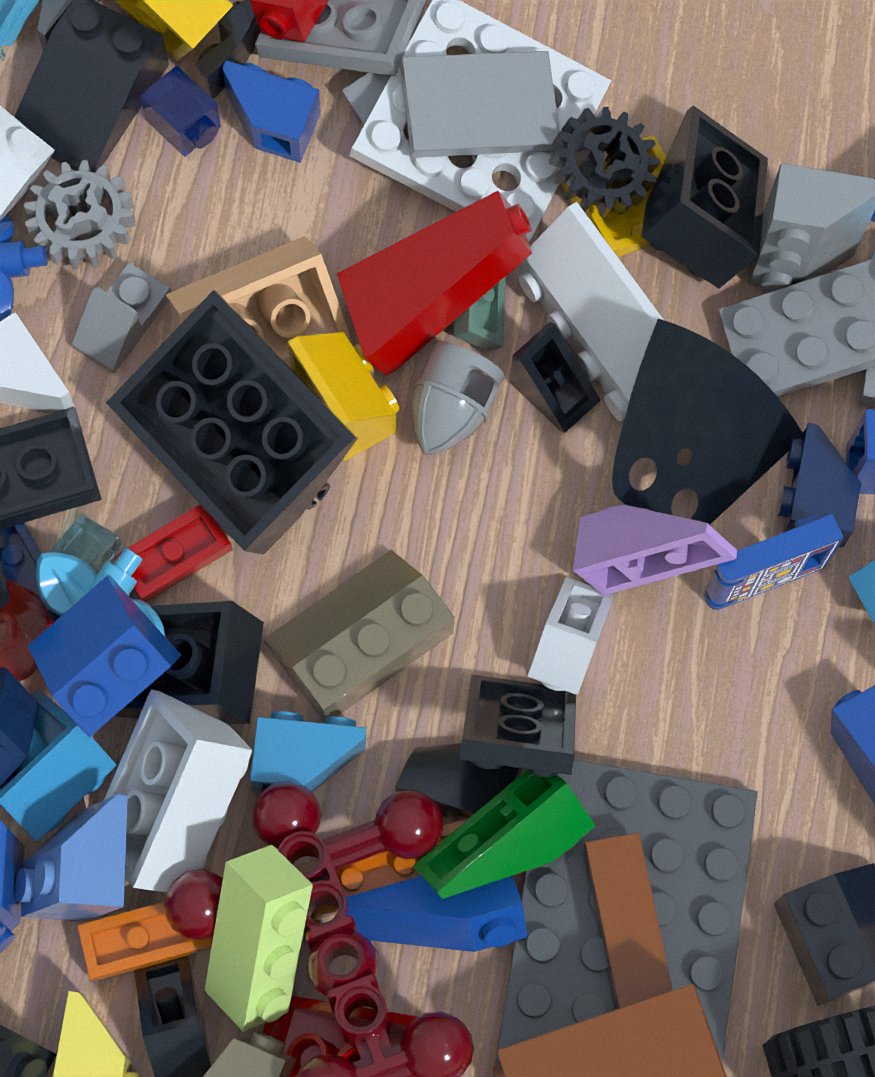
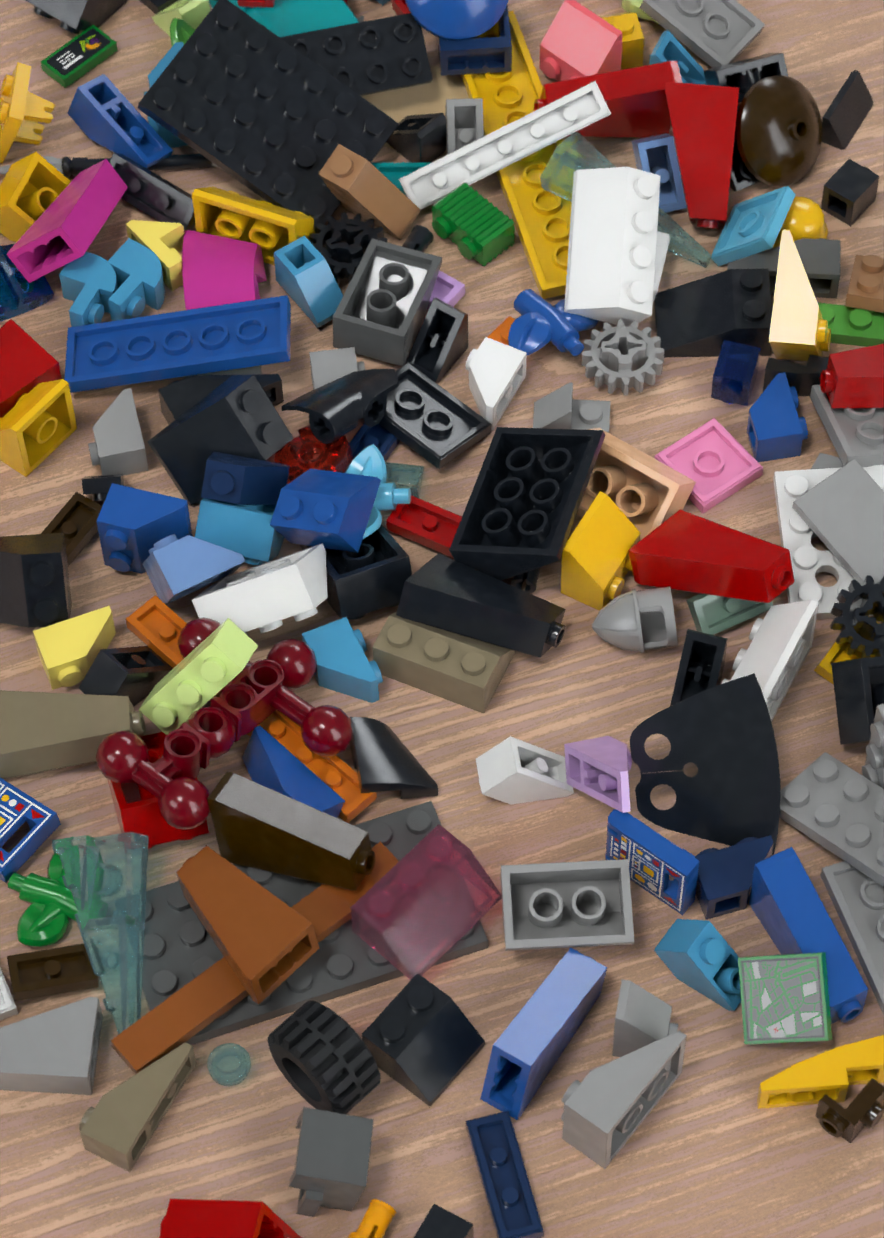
camera: 65 degrees right, 15 degrees down
(276, 206) = (714, 462): none -> bright pink tile
(332, 559) = (480, 607): none -> black slope
(511, 834) = (358, 790): green slope -> none
(519, 726) = (432, 758): black plate -> none
(536, 945) = (287, 836): none -> dark brown slope
(695, 837) = (425, 903): none -> clear pink slope
(777, 685) = (566, 904): none -> light grey slope

